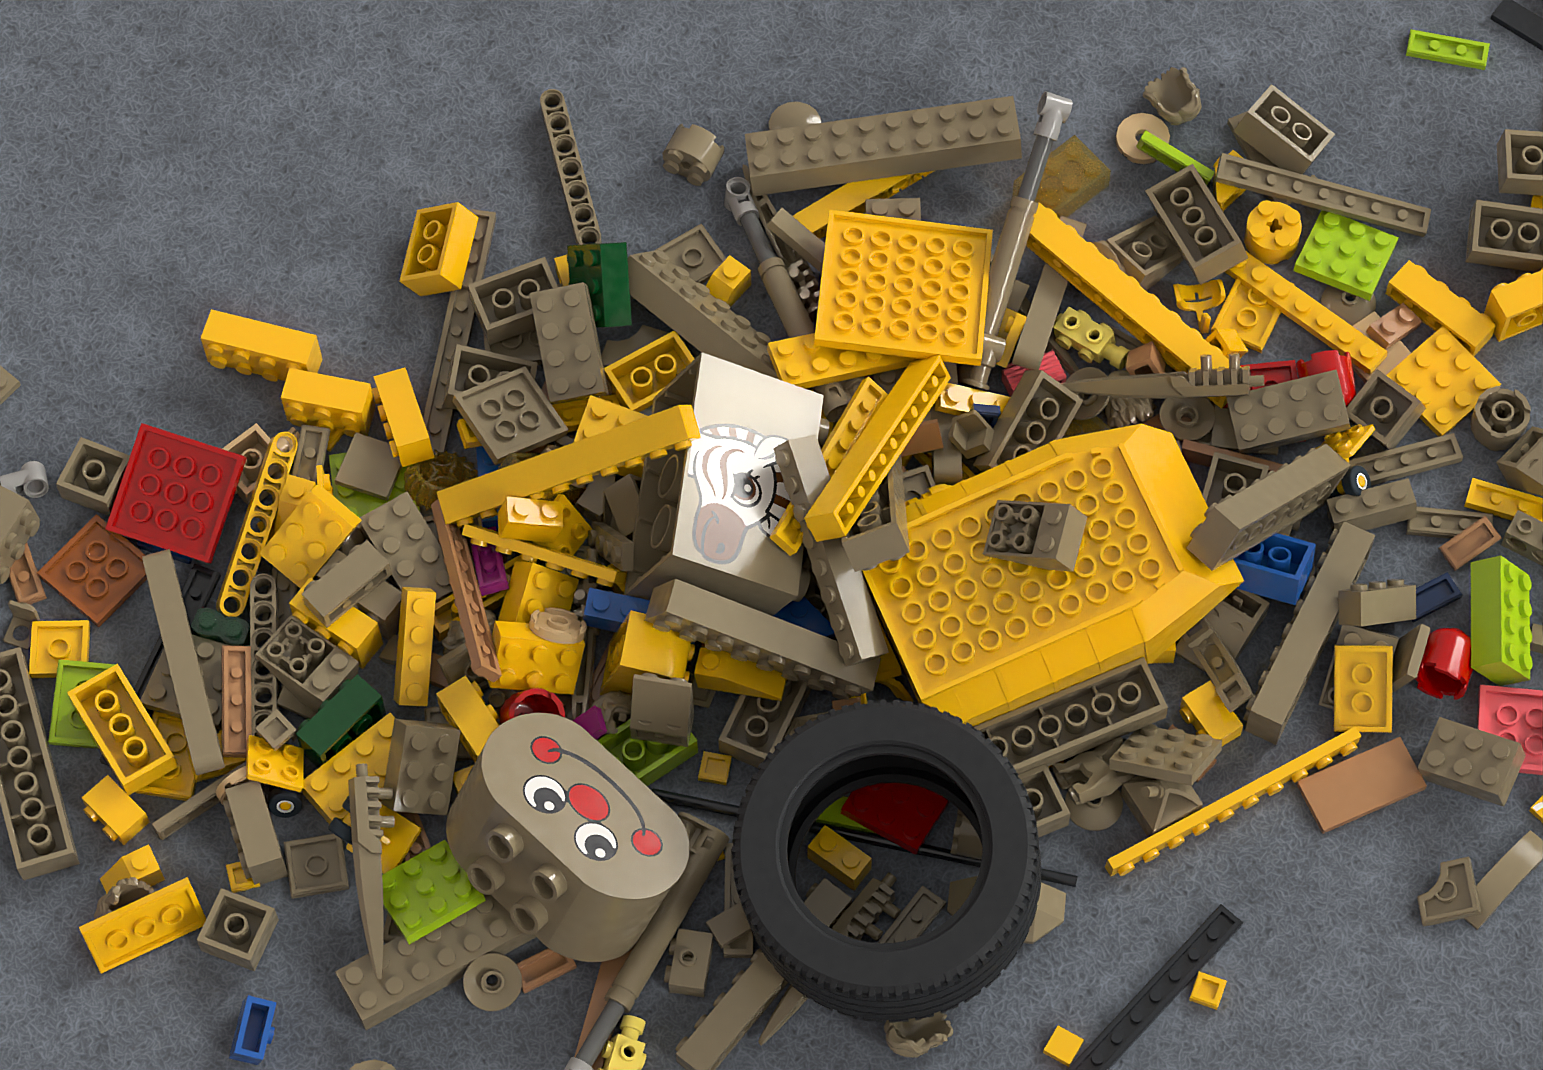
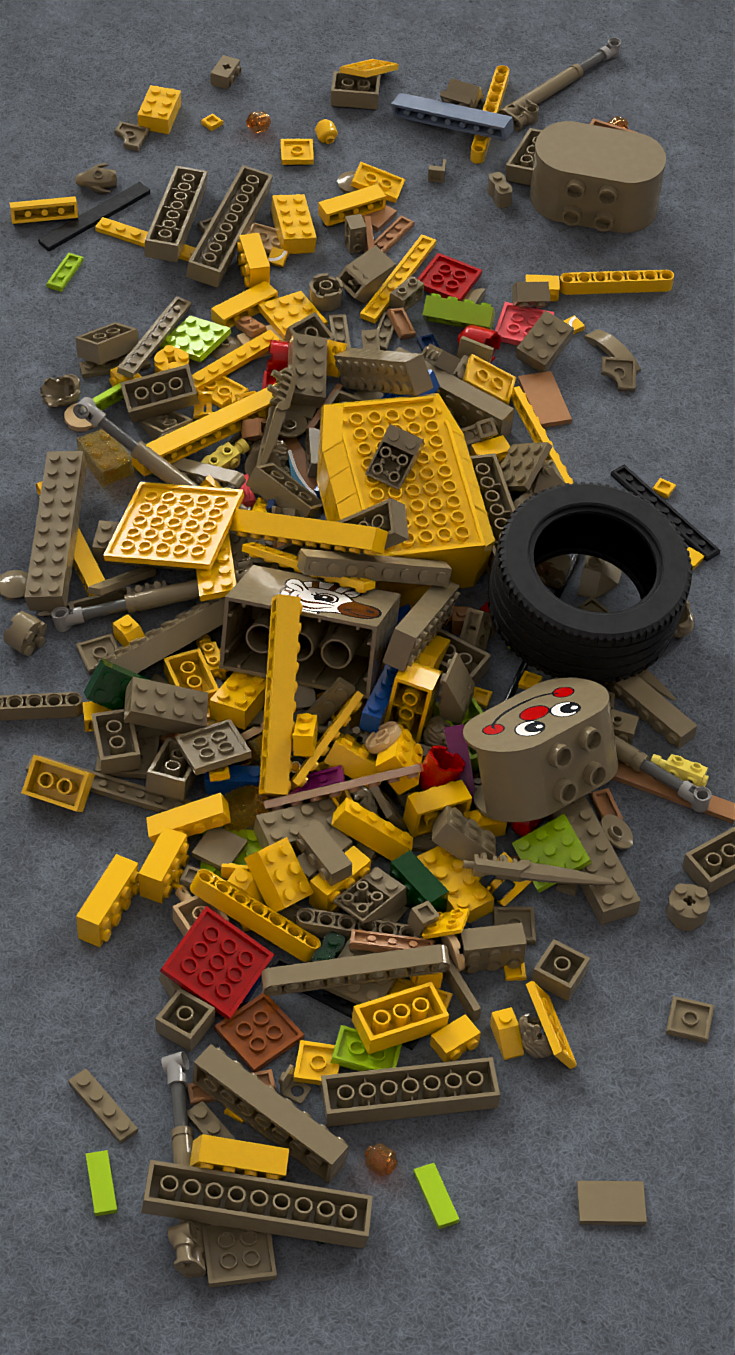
camera: 85 degrees left, 15 degrees down
(253, 1030) = (636, 969): blue brick -> none

